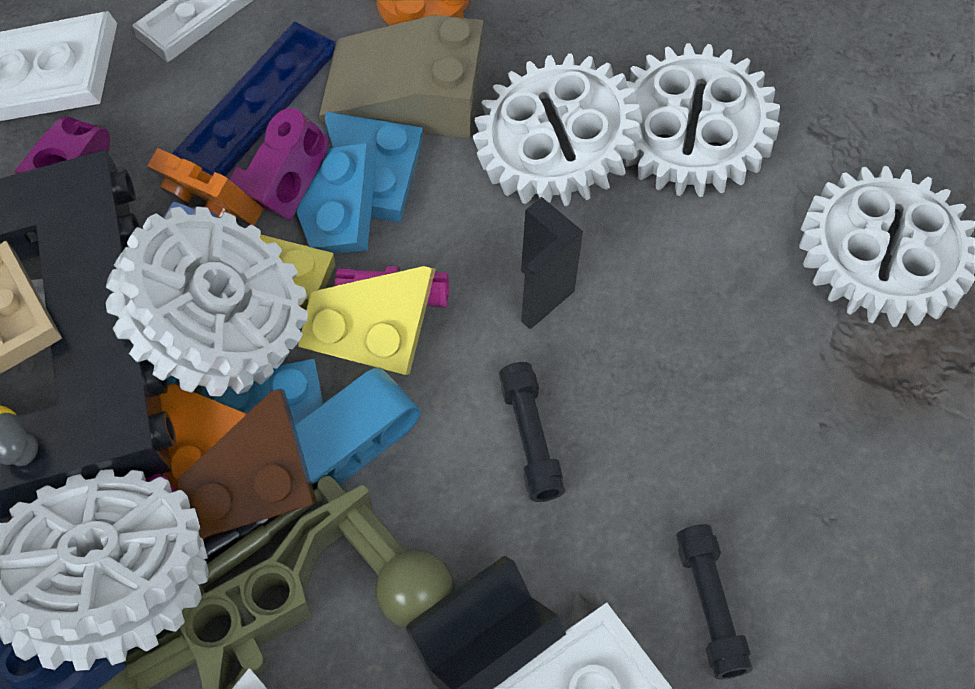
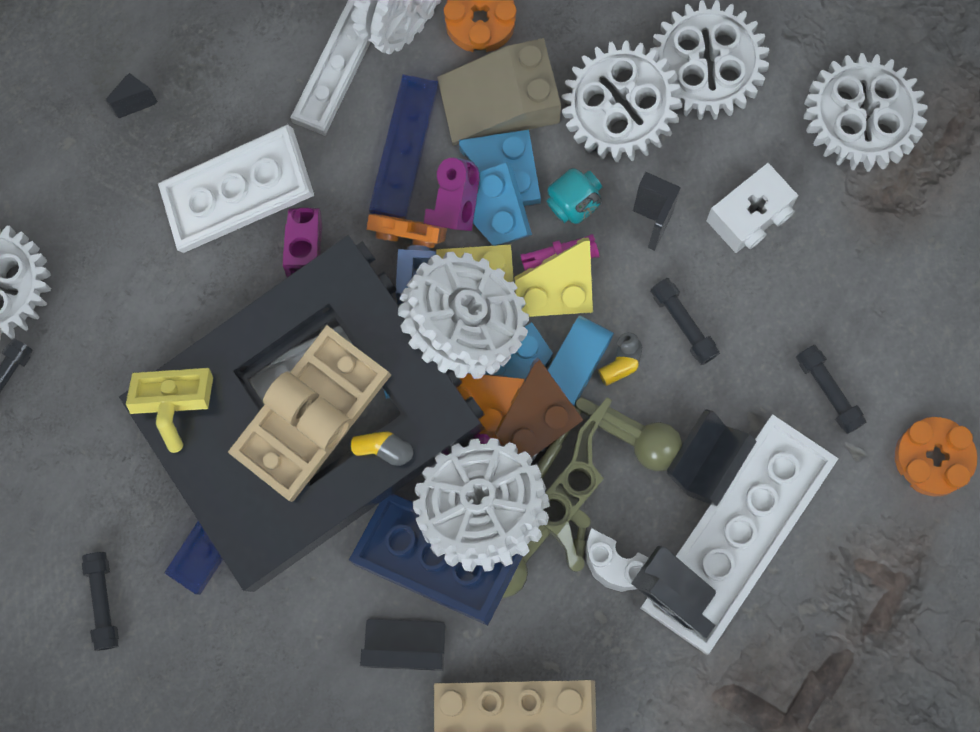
camera: 15 degrees left, 15 degrees up
(424, 456) = (626, 359): none -> arm
(445, 219) = (574, 195): none -> teal head
(685, 313) = (762, 191): none -> white brick

